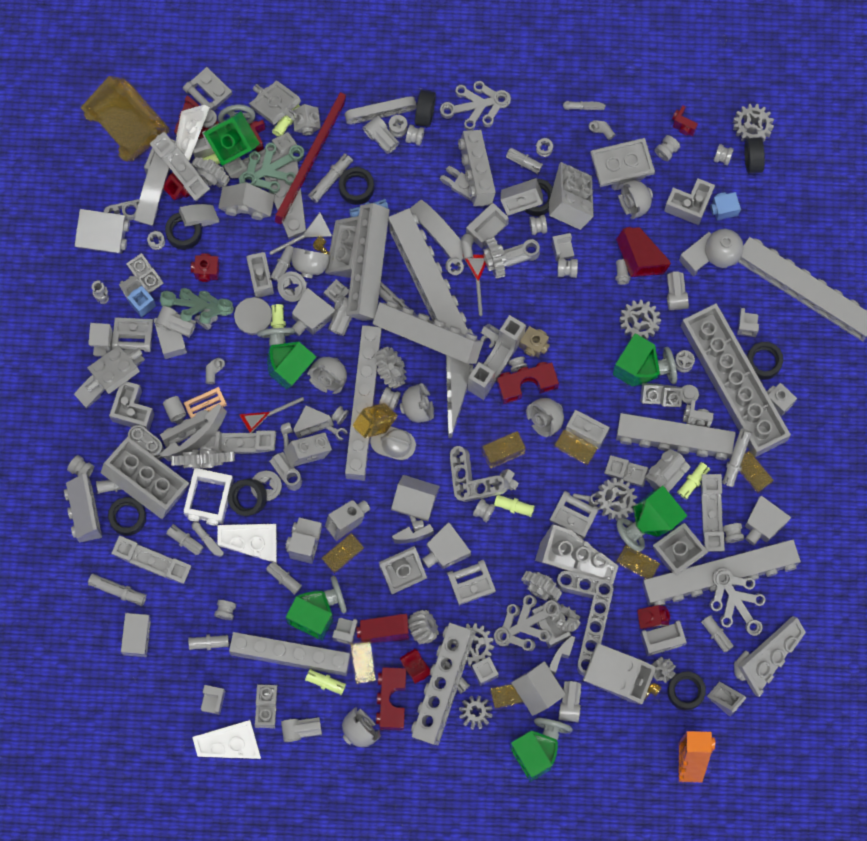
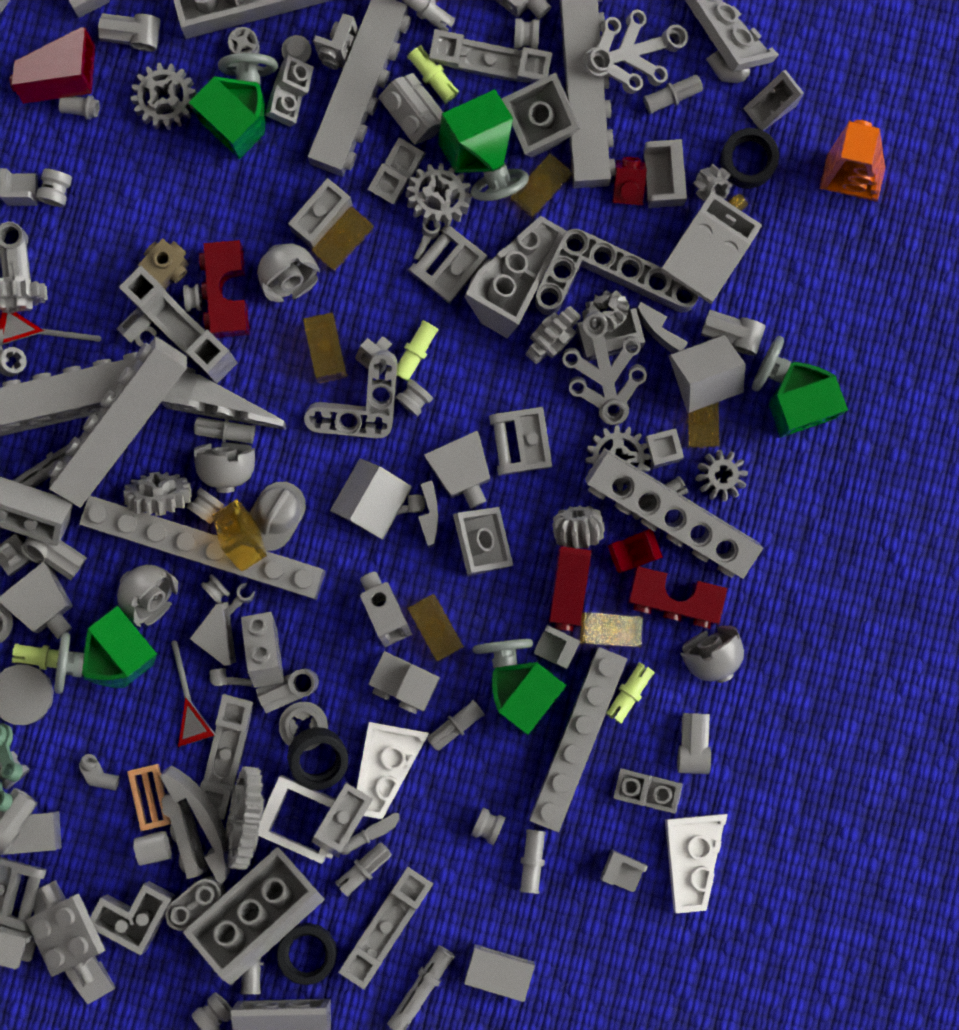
camera: 80 degrees left, 10 degrees up
(212, 517) = (342, 820): none -> light grey panel
(439, 401) = (224, 430): none -> light grey axle

